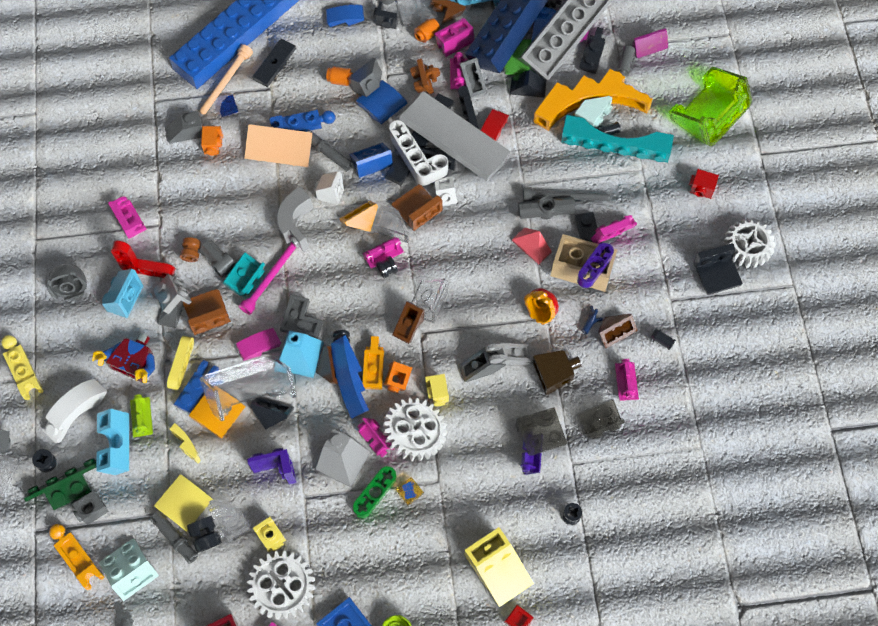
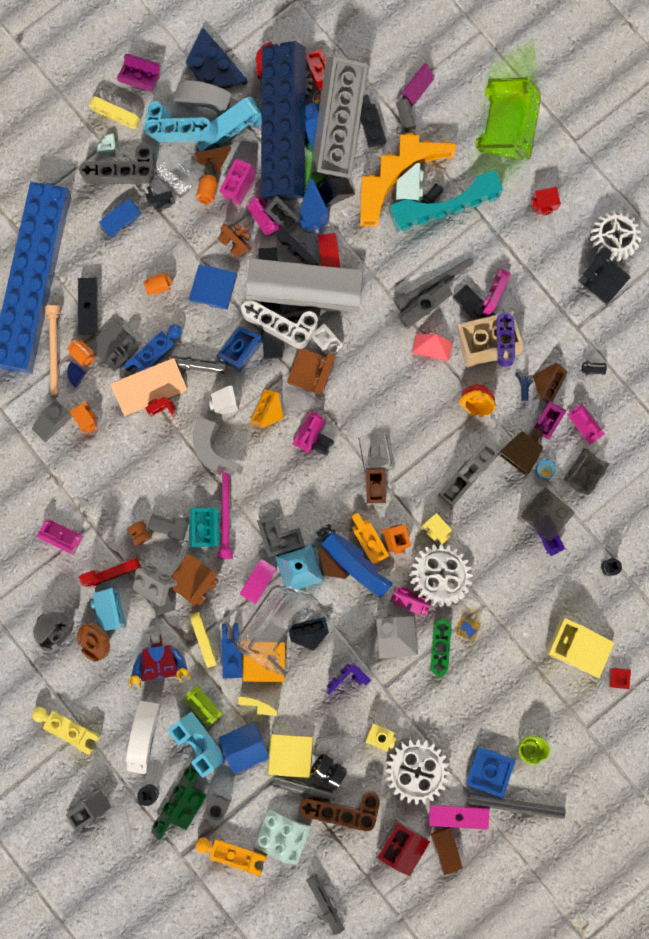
camera: 35 degrees left, 15 degrees up
(92, 309) = (93, 641): none -> dark orange tile
(149, 472) = (244, 747): none -> blue slope
(190, 575) = (339, 809): none -> reddish brown beam
(244, 92) = (81, 352): none -> orange brick
(273, 102) = (114, 345): none -> dark grey hinge
(276, 164) = (156, 406): none -> red bracket
(366, 78) = (185, 273): dark grey slope -> none
(499, 86) = (313, 210): none -> blue slope
(566, 398) = (546, 469): none -> dark azure tile
(596, 357) = (549, 419): none -> magenta slope

